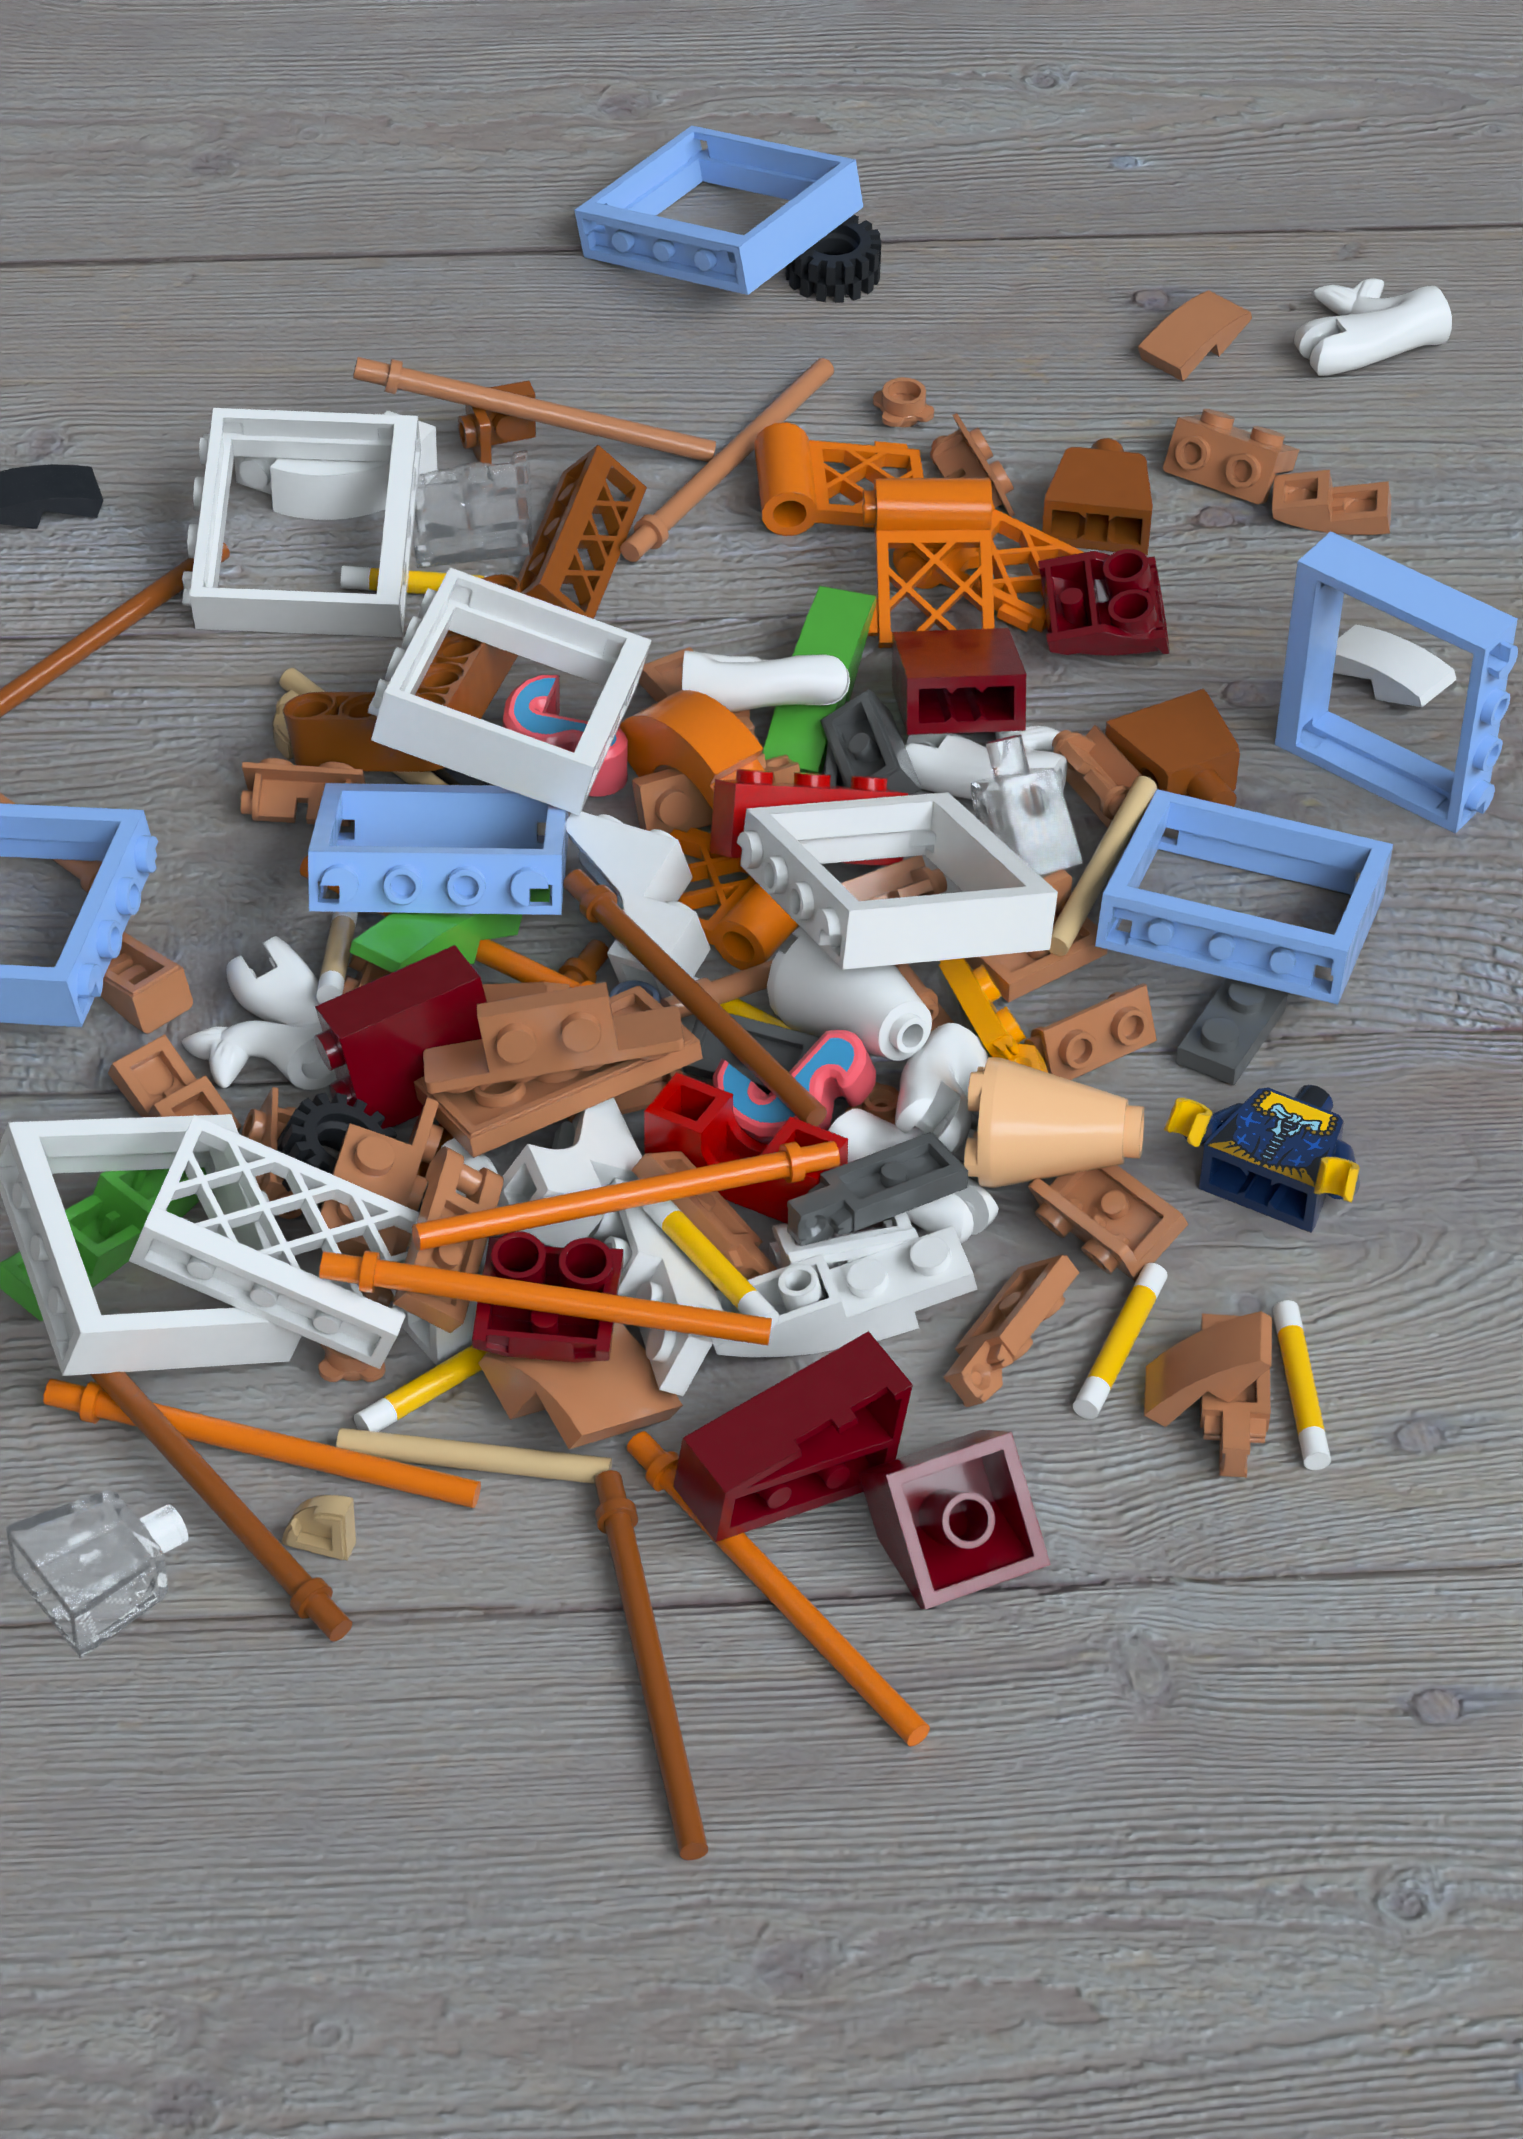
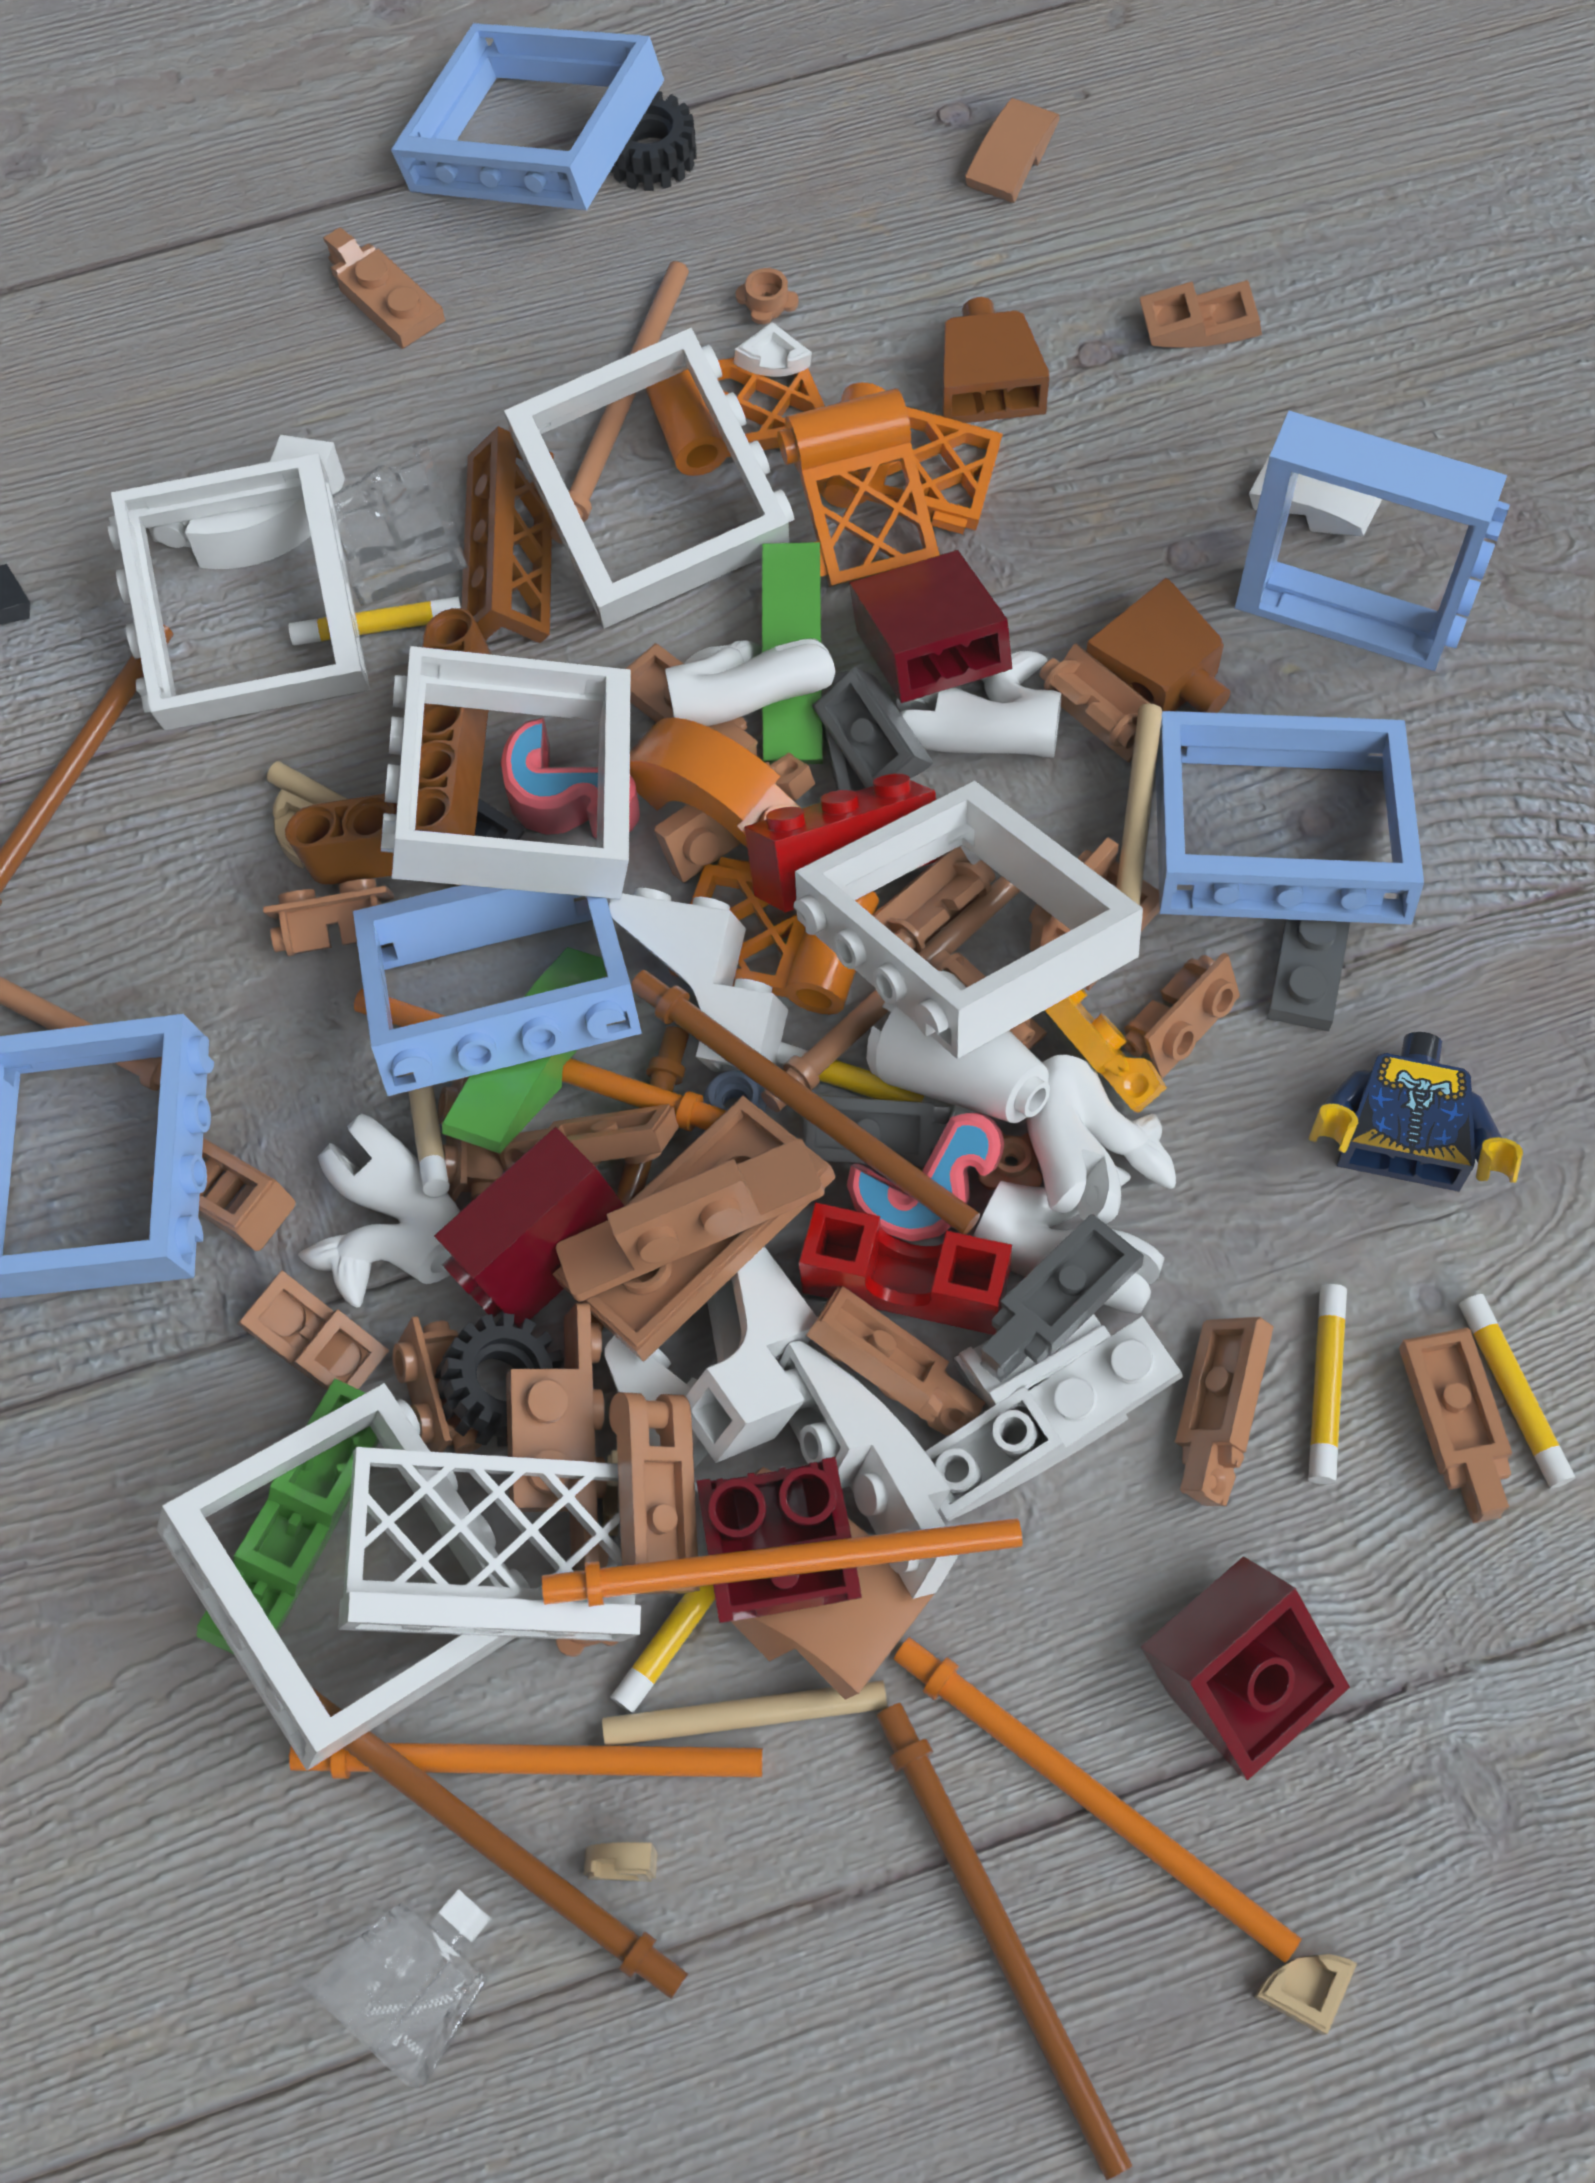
camera: 10 degrees left, 20 degrees up
(396, 377) = (283, 401): nougat bar -> none
(485, 428) = (386, 408): dark orange bracket -> none
(527, 326) = (382, 289): none -> nougat hinge
(710, 1260) = (921, 1432): yellow bar -> none
(741, 593) = (691, 567): none -> white window
(788, 1163) = (970, 1304): orange bar -> none
(796, 1442) = (1071, 1640): dark red wedge -> none
(889, 446) = (772, 353): none -> white tile
(921, 1767) = (1308, 1989): none -> tan tile
(965, 456) = (844, 344): nougat hinge -> none
(1025, 808) = (1054, 784): clear torso -> none
(1044, 1126) = (1198, 1173): light nougat cone -> none
(1104, 604) = (1032, 493): dark red slope -> none
(1112, 1215) = (1272, 1236): nougat bracket -> none
(1214, 1360) = (1440, 1416): nougat slope -> none
(1228, 458) = (1089, 284): nougat bracket -> none
(1371, 326) = (1178, 104): white piece -> none

